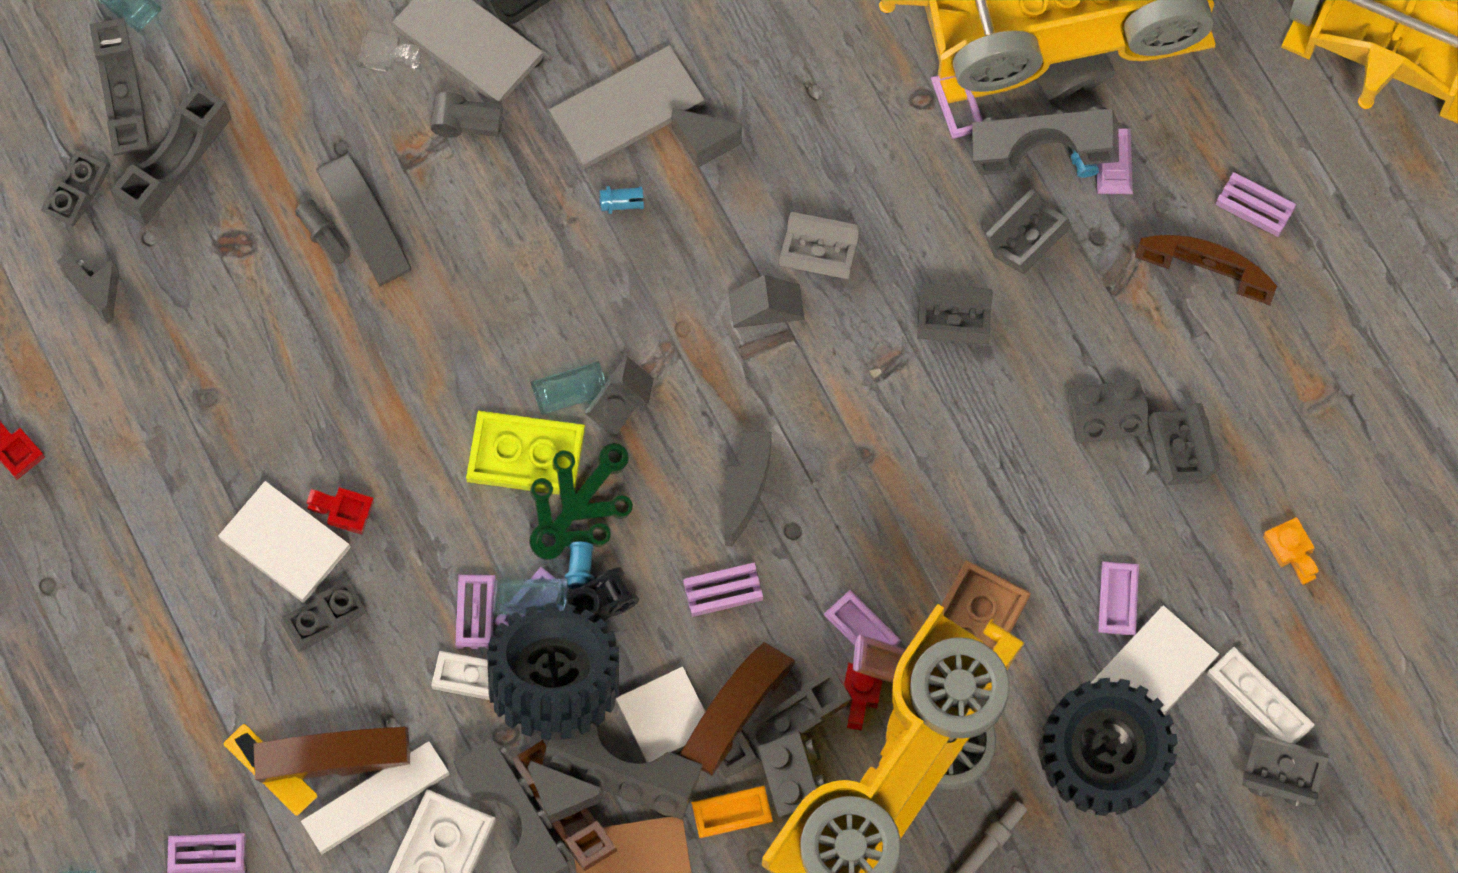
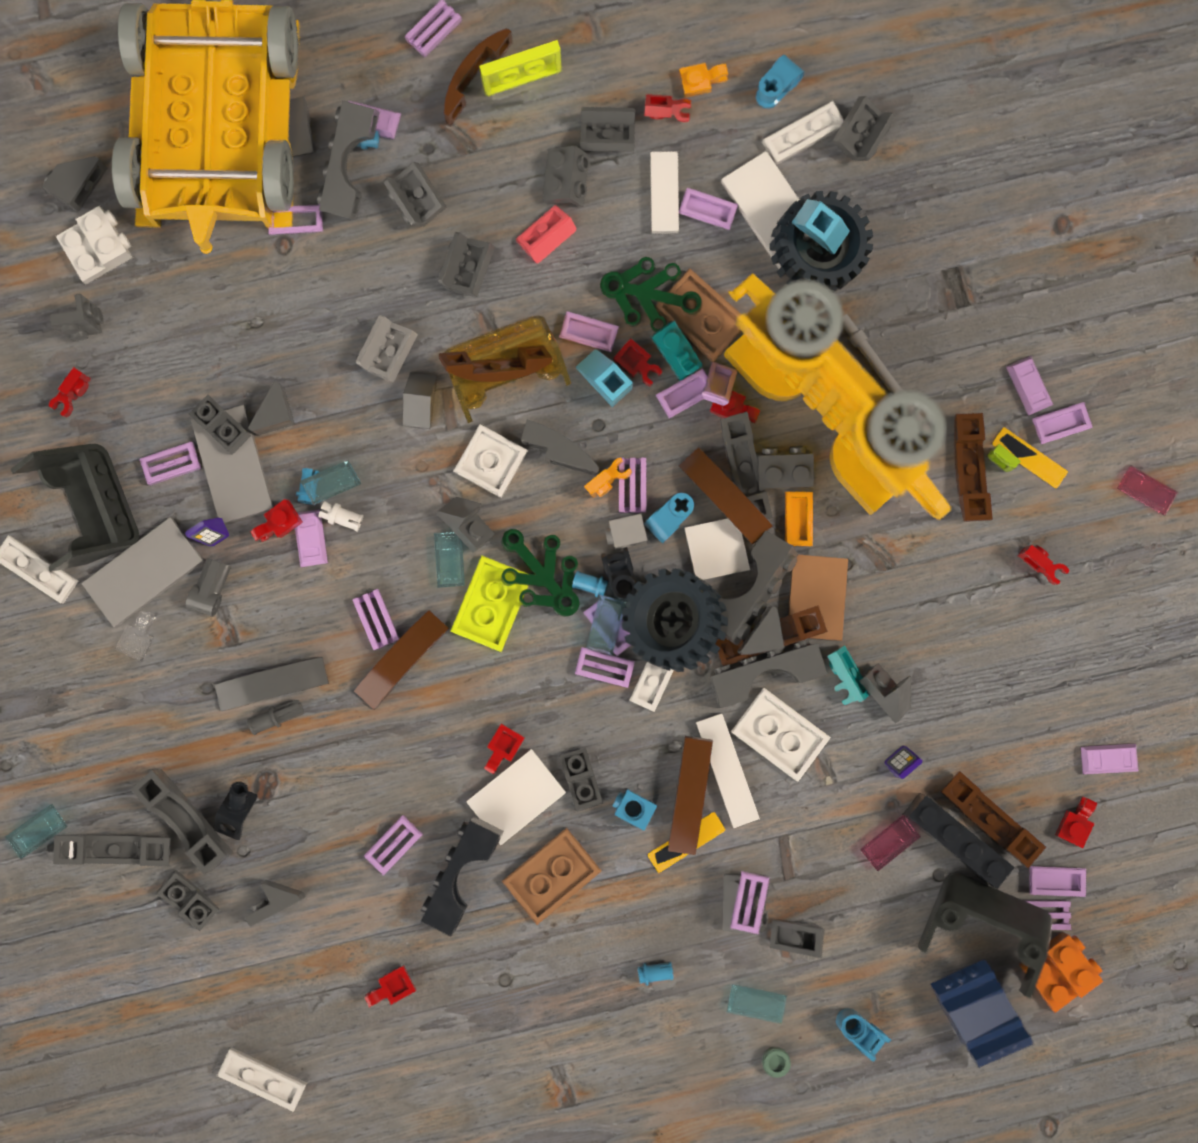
camera: 80 degrees left, 15 degrees up
(92, 765) = (655, 973): none -> dark azure pin
(127, 486) = (446, 906): none -> black arch
(192, 610) = (551, 876): none -> medium nougat tile
(197, 212) = (235, 810): none -> black bracket
(217, 424) = (409, 827): none -> lavender tile
(302, 703) = (643, 817): none -> dark azure brick
(431, 360) = (400, 659): none -> reddish brown slope
(465, 309) = (367, 599): none -> lavender tile
(534, 98) = (208, 531): none -> dark purple slope
(557, 219) = (311, 539): none -> lavender tile
(569, 177) = (280, 521): none -> red plate
(593, 244) = (340, 516): none -> white pin
(624, 59) = (193, 456): none -> lavender tile
(631, 222) = (330, 482): none -> clear light blue tile
(658, 594) = (626, 532): none -> light grey brick
(672, 77) = (219, 424): none -> dark grey slope
(688, 640) = (667, 519): none -> dark azure piece
(710, 408) = (490, 461): none -> white tile
(715, 547) = (602, 482): none -> light orange plate
(825, 378) = (528, 360): none -> reddish brown slope
(840, 381) = (505, 344): none -> clear yellow windscreen
(852, 519) = (605, 377): none -> medium azure slope
(887, 552) = (634, 360): none -> red plate
(911, 487) = (588, 331): none -> lavender tile
(914, 601) = (676, 350): none -> teal plate
(981, 544) = (646, 292): none -> dark green plant
(1026, 406) = (546, 234): none -> coral slope
(1120, 729) = (821, 225): none -> medium azure slope
(1124, 538) = (664, 193): none -> white tile
(1228, 316) = (521, 68): none -> neon yellow tile
(1239, 507) = (664, 106): none -> red plate
(1321, 647) = (778, 82): none -> dark azure piece

